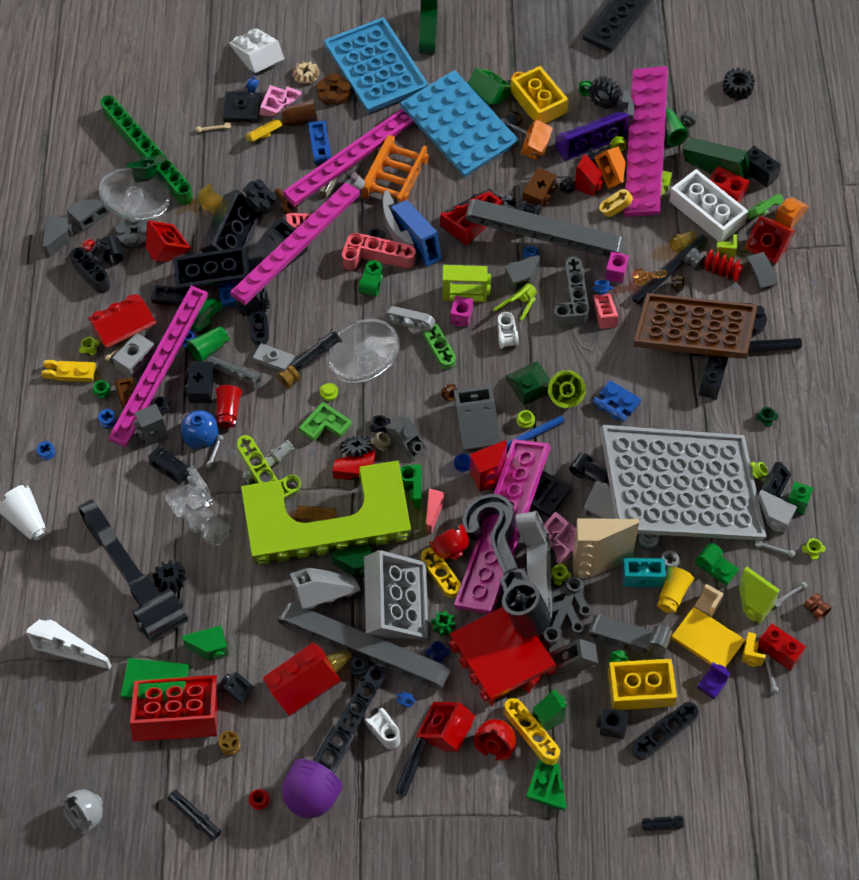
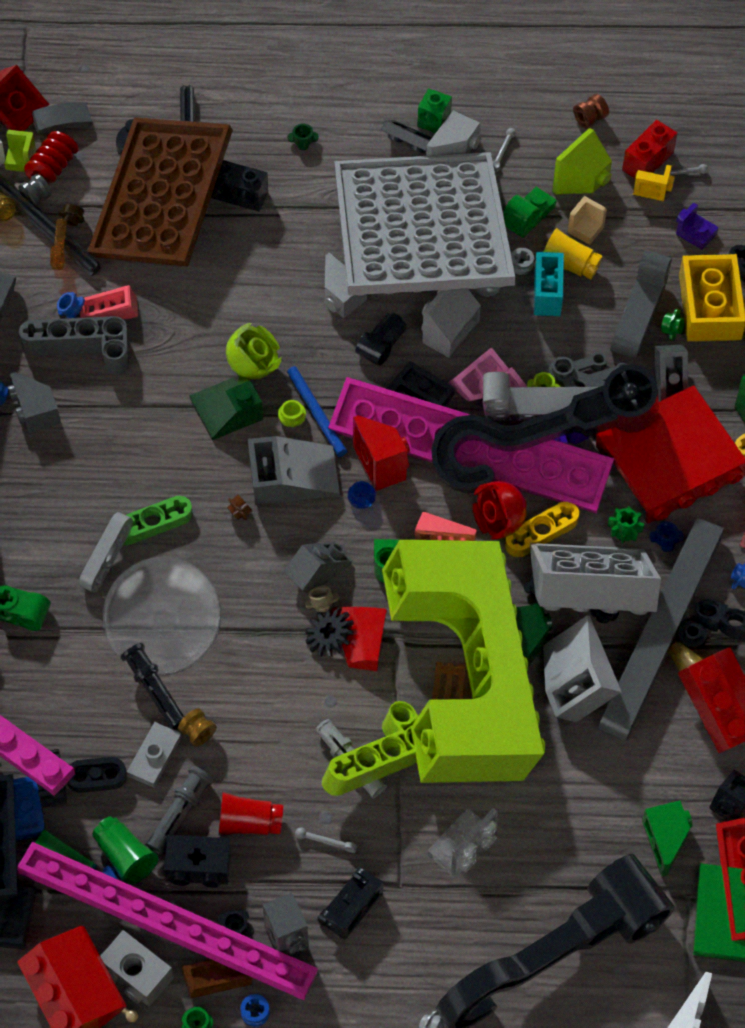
camera: 90 degrees left, 0 degrees up
(169, 576) = (555, 883): black gear -> none
(193, 494) = (415, 866): clear bracket -> none
(199, 429) = (286, 862): blue cylinder -> none
(325, 418) = (277, 678): bright green plate -> none
(329, 391) = (226, 672): lime plate -> none
(379, 419) = (286, 595): black plate -> none
(463, 273) = (52, 471): lime window -> none
(464, 305) = (92, 475): dark pink brick -> none
(507, 333) = (139, 426): white piece -> none
(525, 294) = (73, 401): lime plant -> none
(602, 545) = (530, 315): tan slope -> none
(617, 267) = (45, 287): dark pink brick -> none
(618, 397) = (262, 298): blue plate -> none
(707, 638) = (635, 228): yellow tile -> none
(759, 471) = (390, 150): lime plate -> none
(803, 585) = (557, 126): light grey hinge -> none
(813, 543) = (505, 108): lime plate -> none

